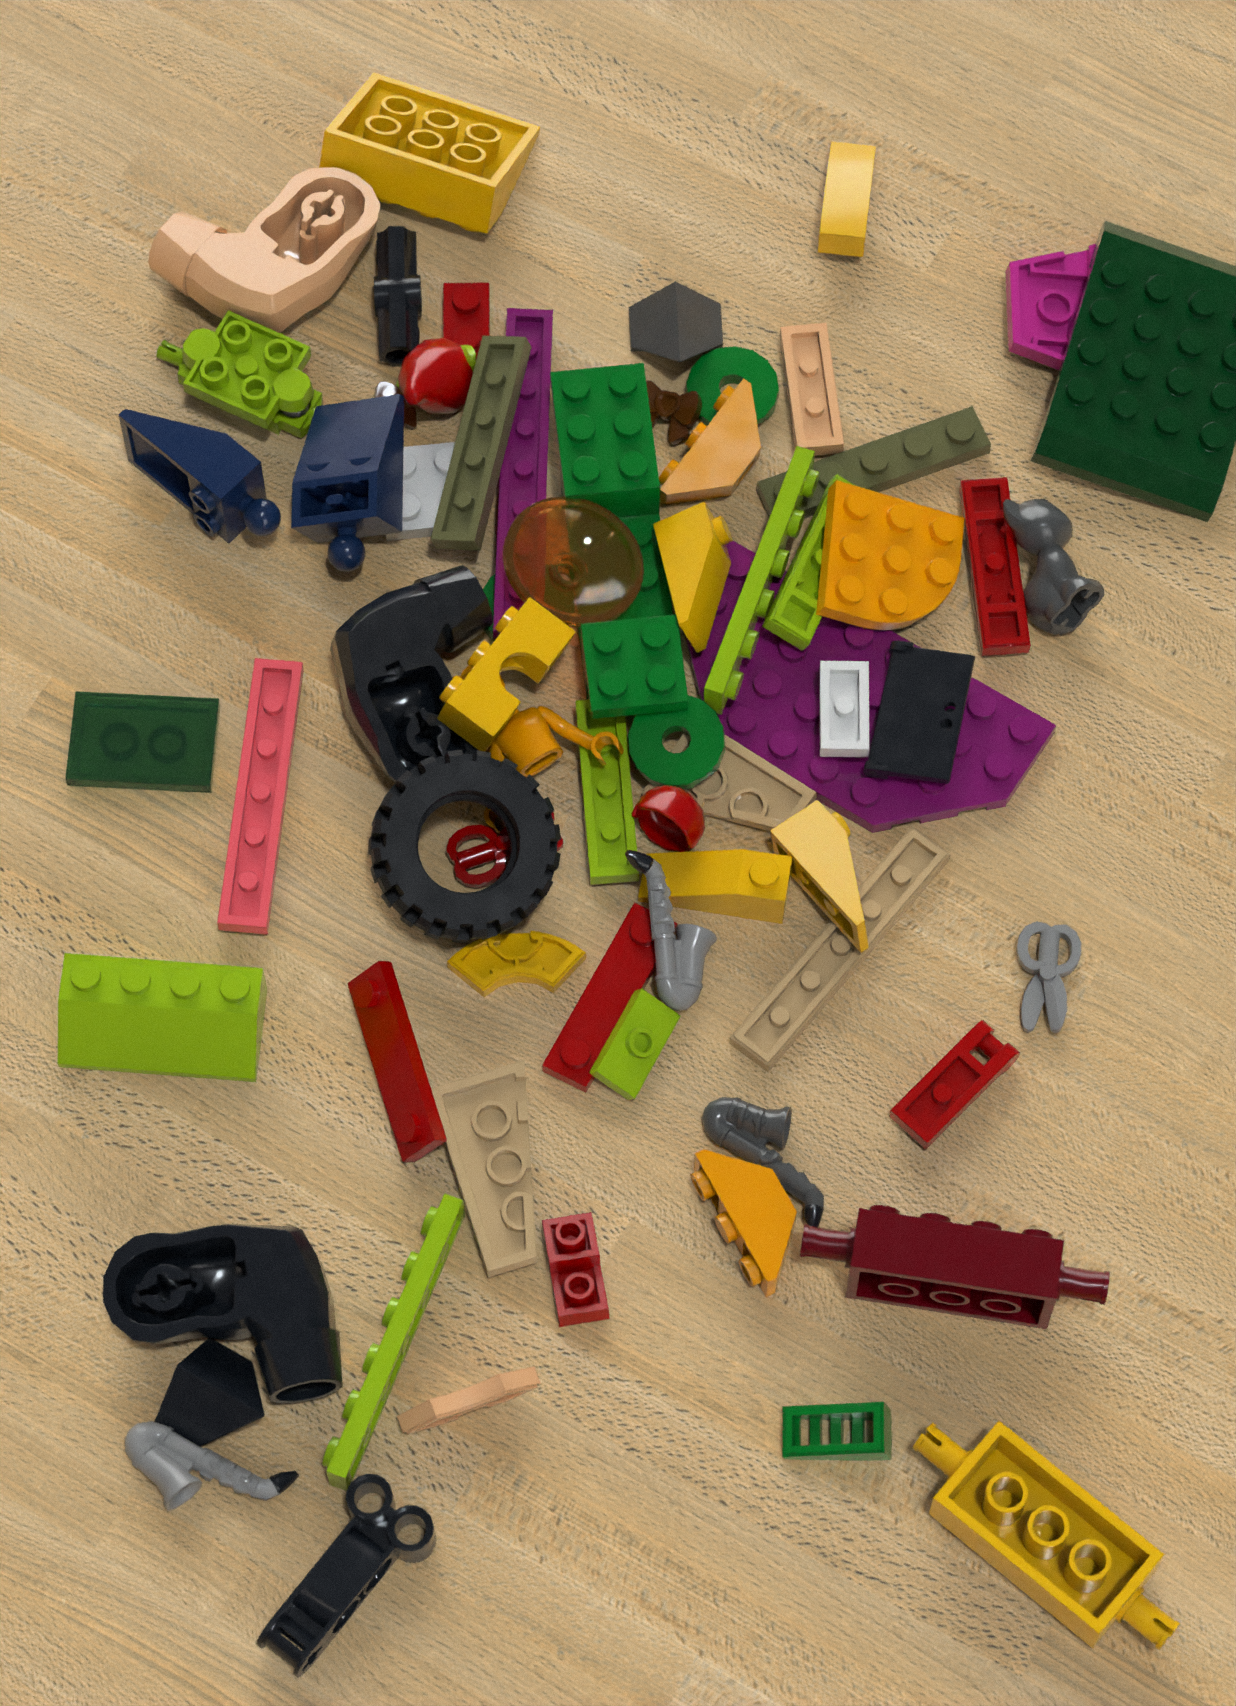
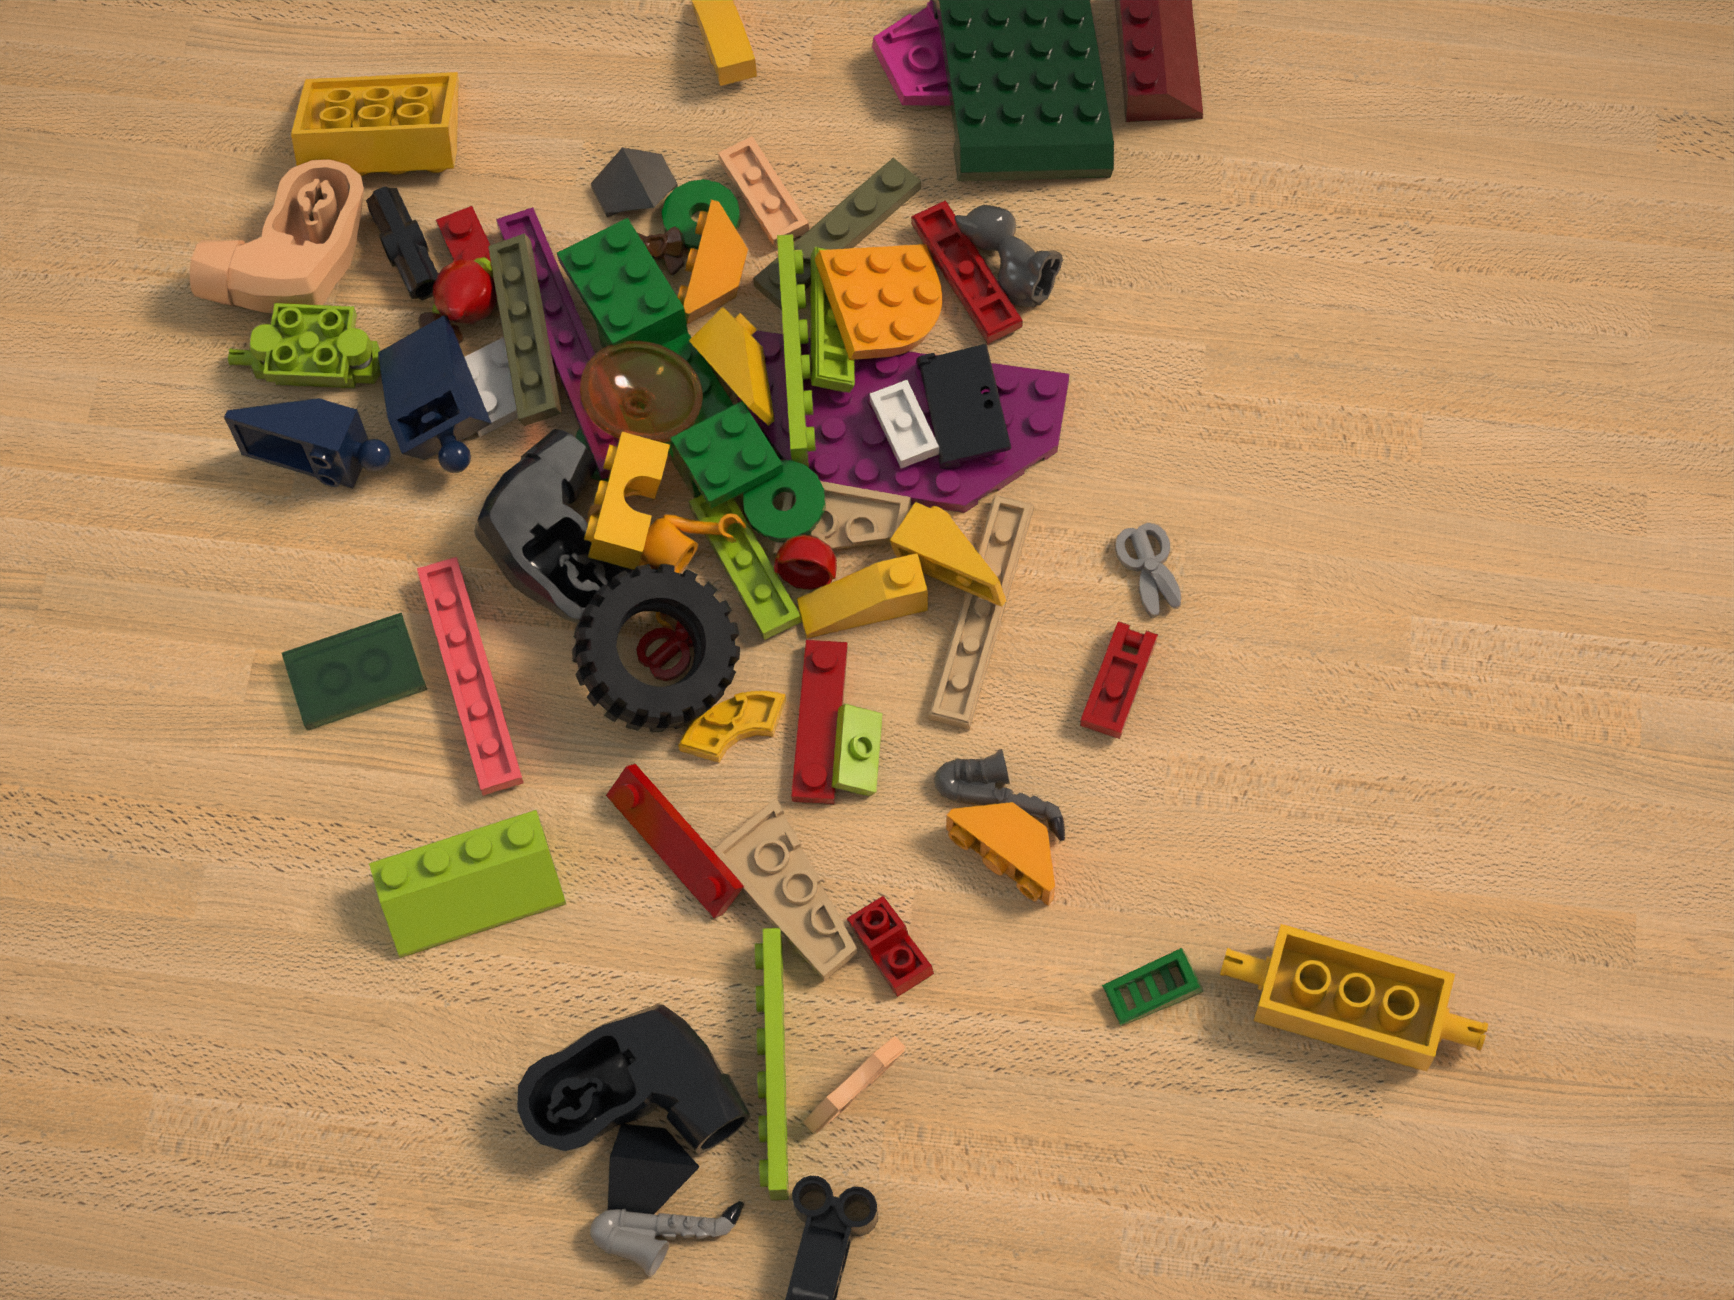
camera: 20 degrees left, 0 degrees up
(680, 959) = (858, 661): light grey piece -> none
(954, 1266) = (1188, 819): dark red brick -> none

